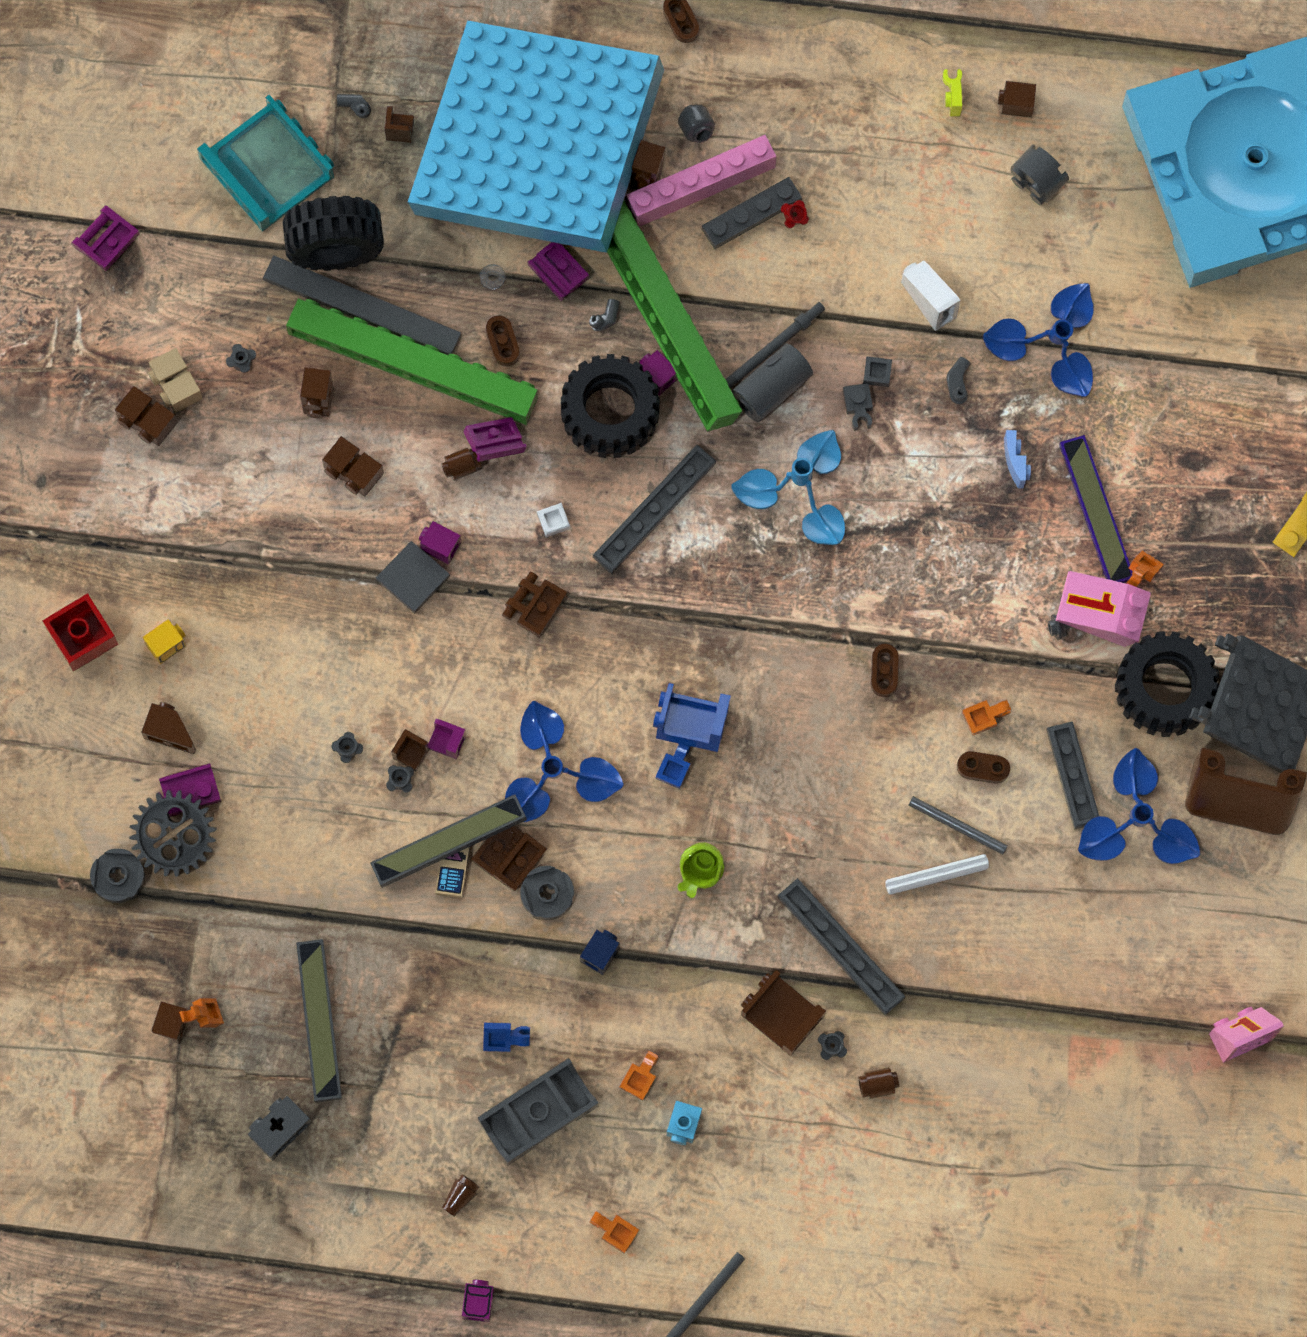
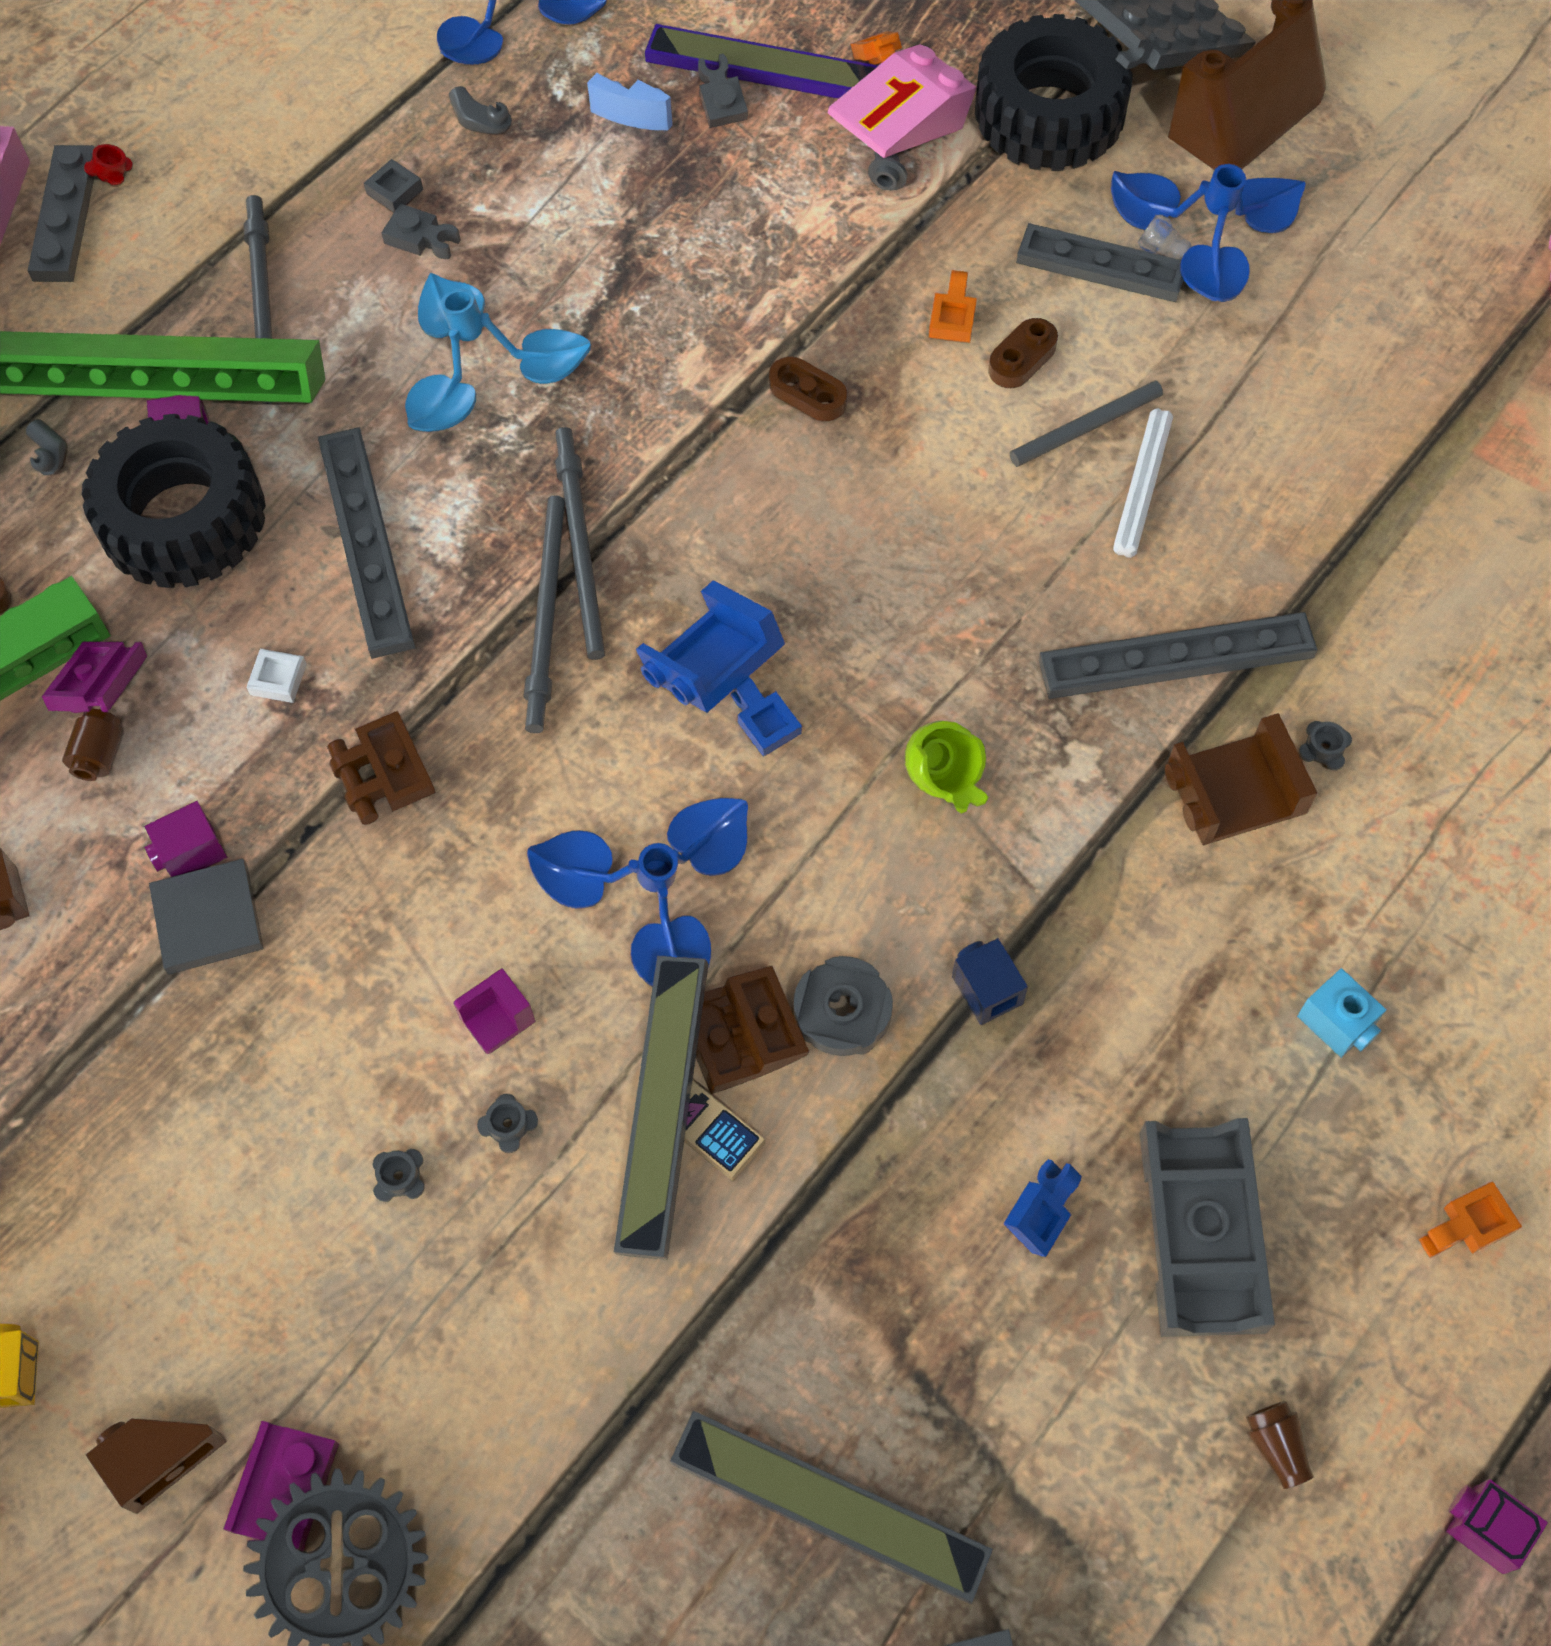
camera: 55 degrees left, 10 degrees down
(410, 750) = (473, 1075): reddish brown panel -> none
(625, 647) = (538, 684): none -> dark grey bar
(639, 1079) = (1230, 1041): orange plate -> none
(757, 581) = (569, 472): none -> dark grey bar
(772, 382) = (309, 291): dark grey piece -> none
(878, 1083) = (1423, 713): reddish brown brick -> none
(931, 294) = (344, 72): white slope -> none
(1054, 504) = (720, 96): none -> dark grey plate
(1107, 800) = (1163, 239): none -> clear piece

